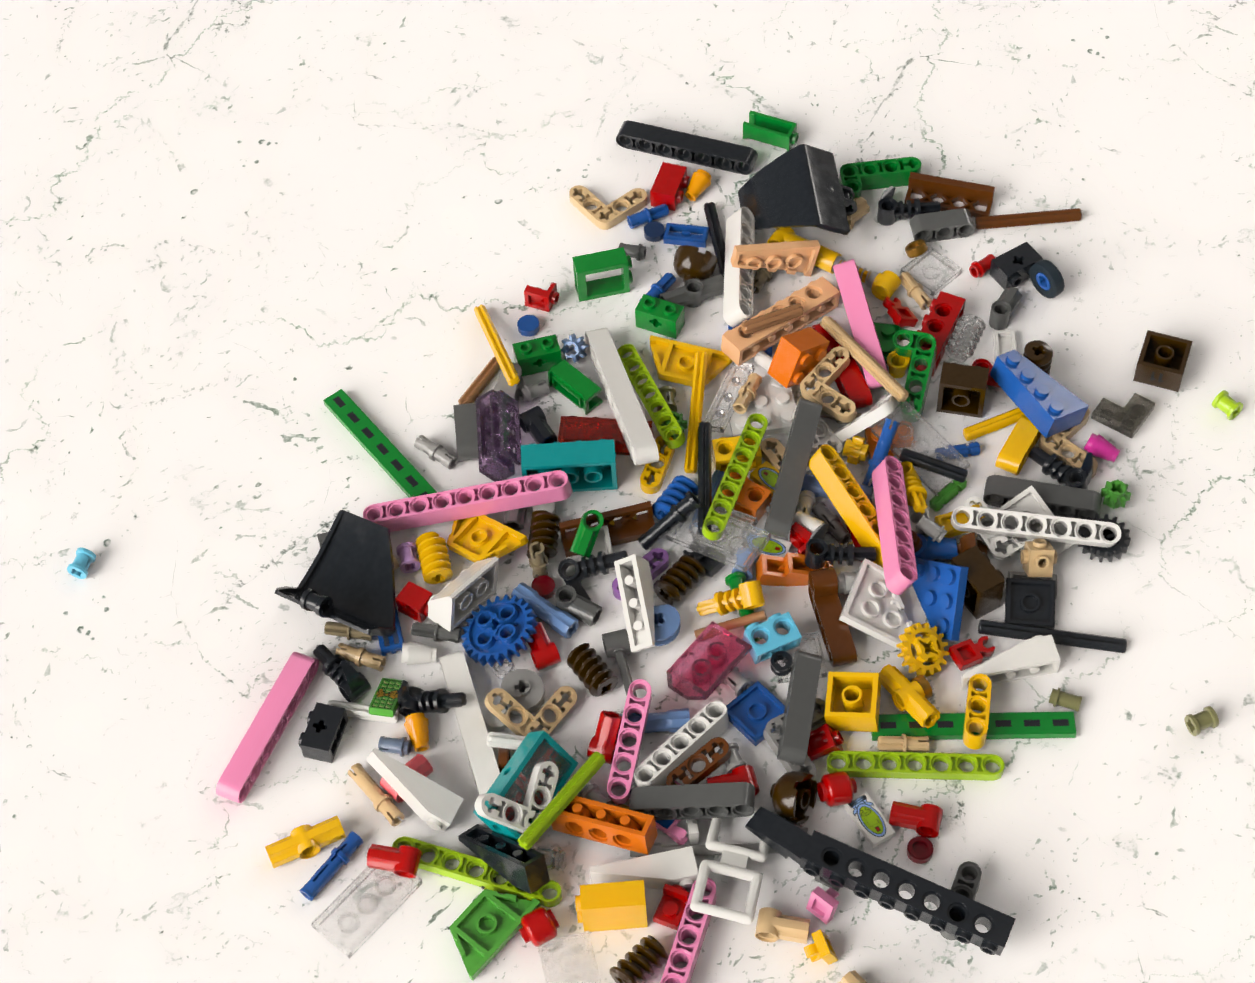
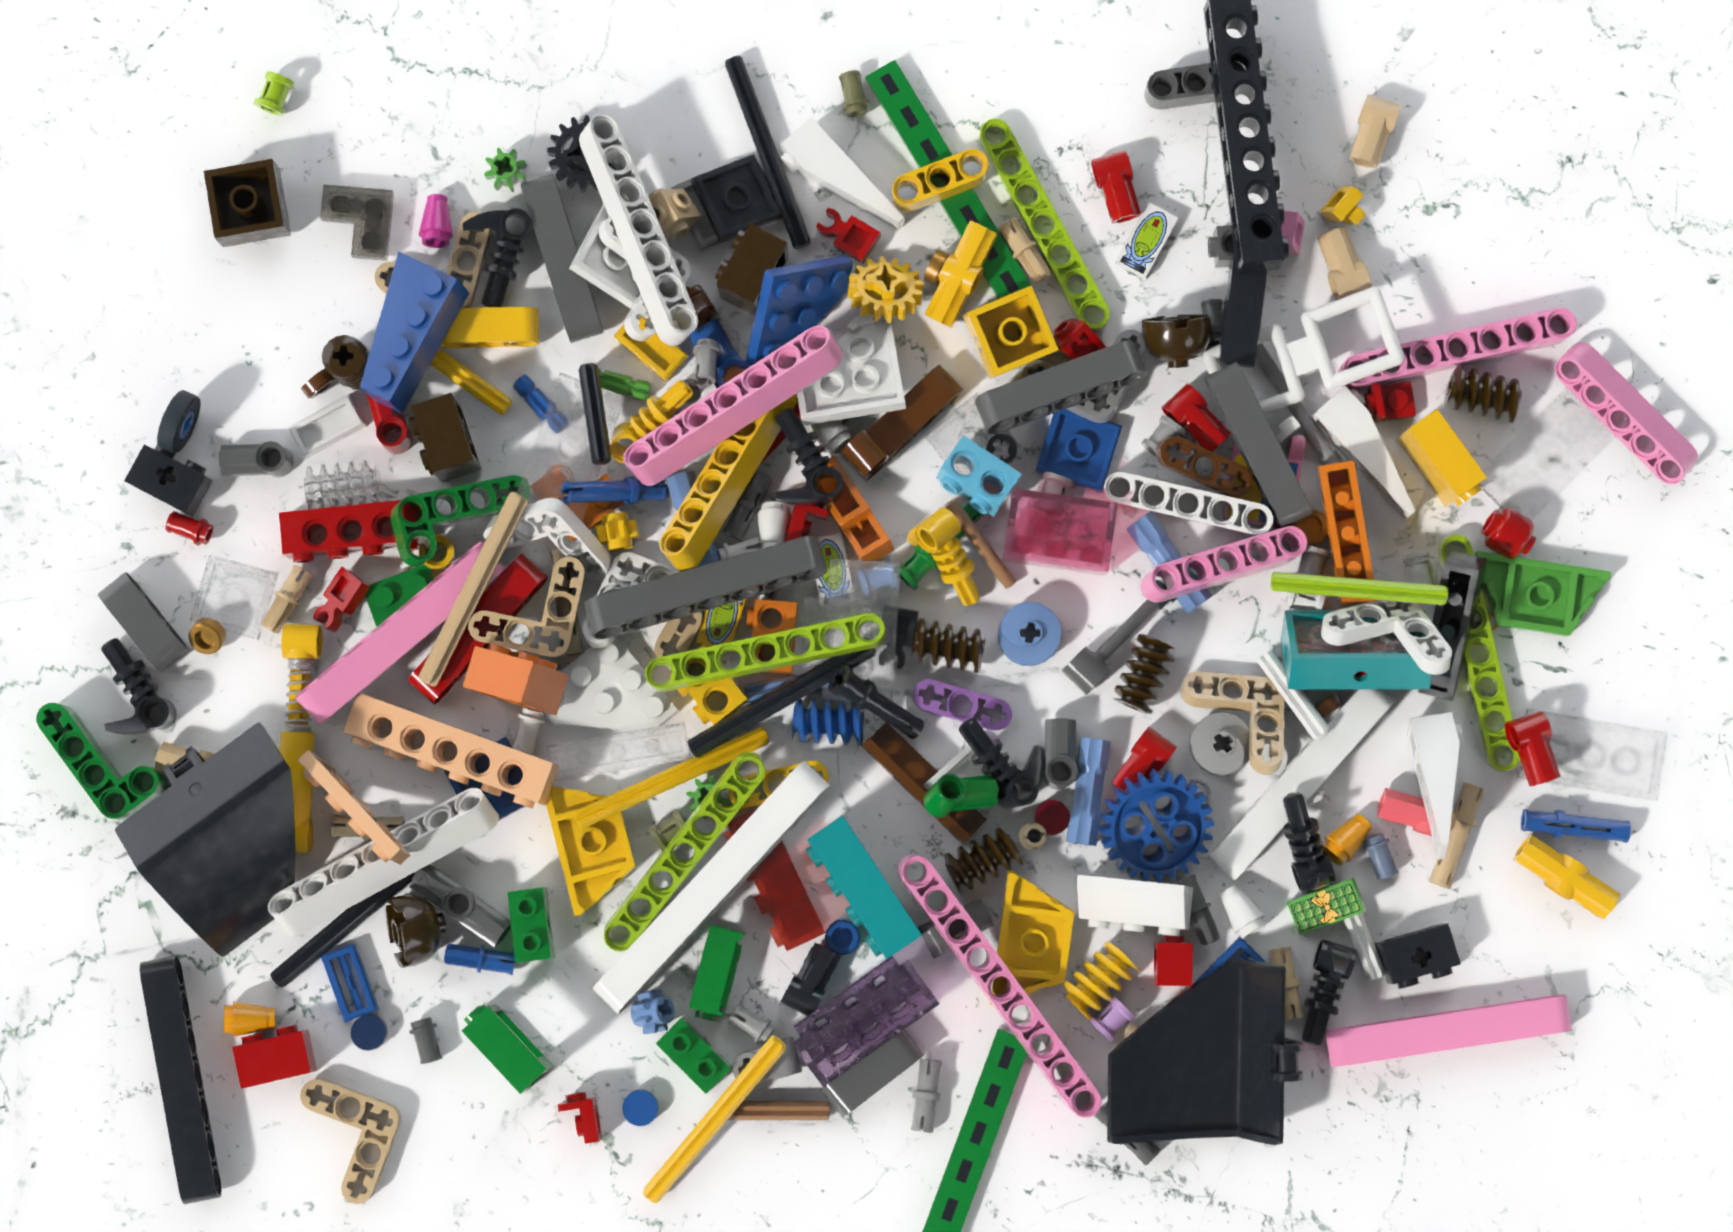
camera: 125 degrees left, 30 degrees up
(606, 735) = (1230, 599): red piece -> none
(637, 600) = (1024, 670): white slope -> none
(647, 215) = (345, 1058): blue axle -> none
(747, 393) = (582, 726): tan pin -> none
(770, 130) = (66, 940): green window -> none
(772, 318) = (472, 749): medium nougat axle -> none
(836, 789) = (1136, 293): red head -> none
(920, 850) = (1150, 165): dark red tile -> none
(950, 192) = (65, 644): reddish brown fence -> none
(1028, 218) = (61, 510): reddish brown axle -> none

